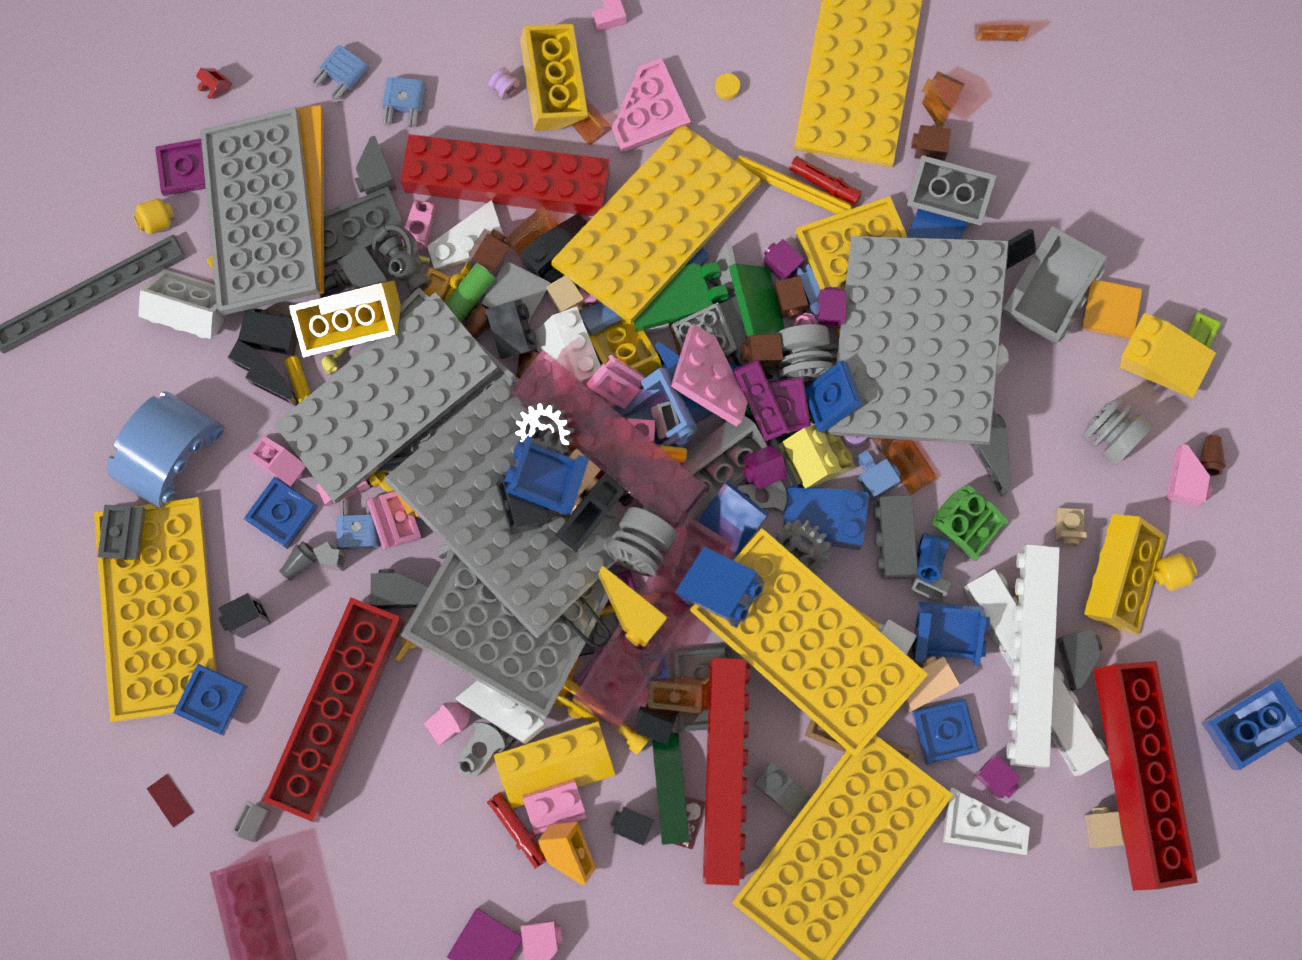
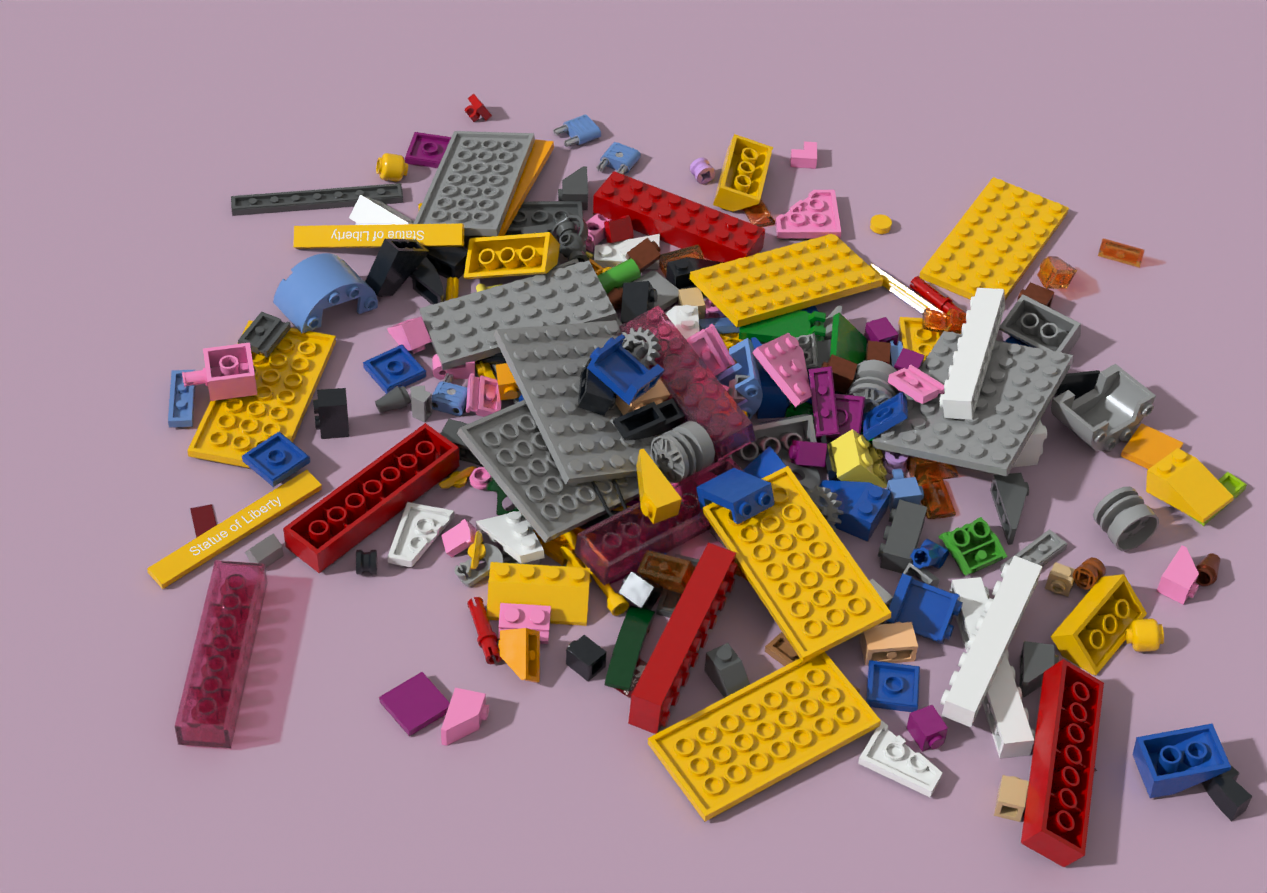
camera: 15 degrees right, 30 degrees down
(70, 649) = (181, 401): none -> medium blue plate
(105, 611) = (226, 372): none -> bright pink brick
(186, 338) = (373, 235): none -> yellow tile
(206, 801) = (234, 529): none -> yellow tile
(222, 376) = (394, 265): none -> black slope
(362, 793) = (366, 561): none -> black wheel
(397, 731) = (416, 532): none -> white wing
(446, 216) = (619, 229): none -> red tile
(471, 739) = (477, 550): none -> yellow piece
(848, 219) = (939, 322): none -> clear orange slope
(853, 344) = (916, 384): none -> bright pink plate
(902, 277) = (973, 354): none -> white brick
(1033, 505) = (1042, 549): none -> light grey tile
(1098, 513) = (1089, 573): none -> dark orange wheel

